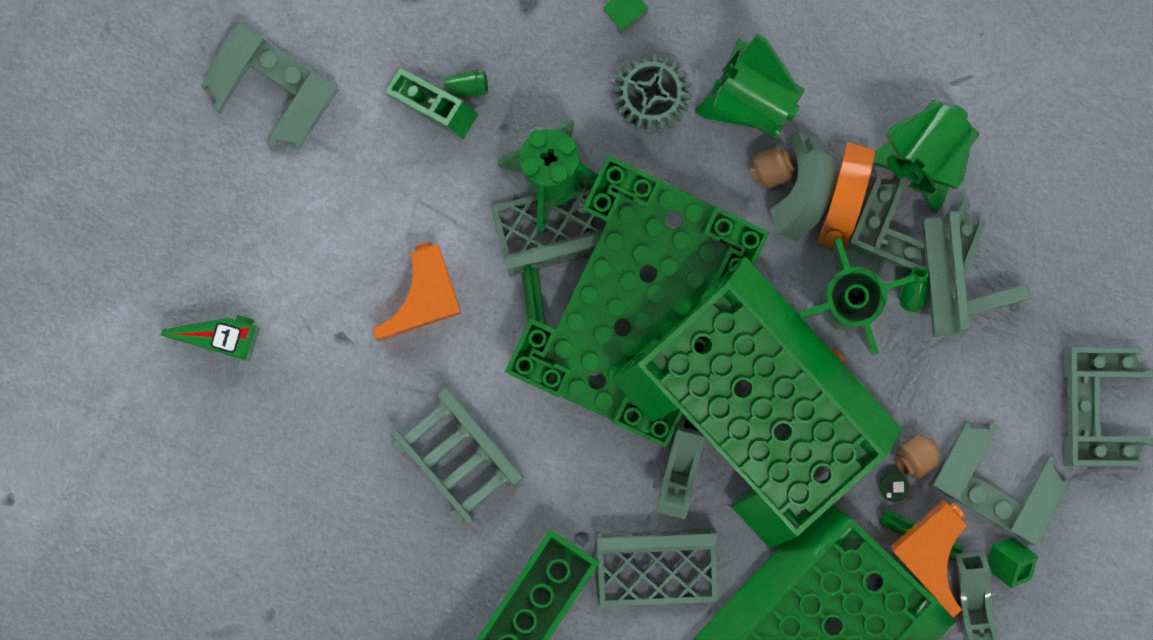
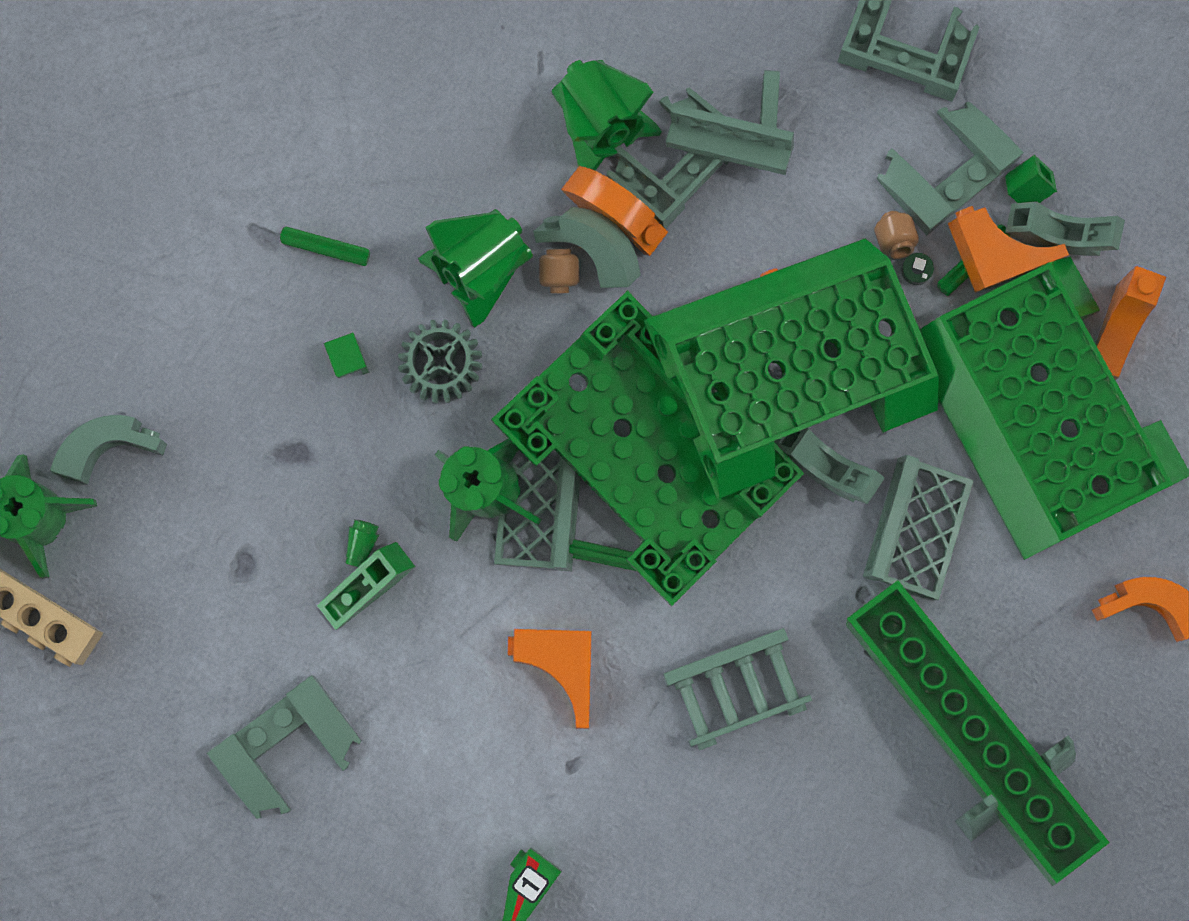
camera: 70 degrees left, 5 degrees down
(859, 284) = (722, 234): green brick -> none
(914, 295) = (732, 177): green cone -> none

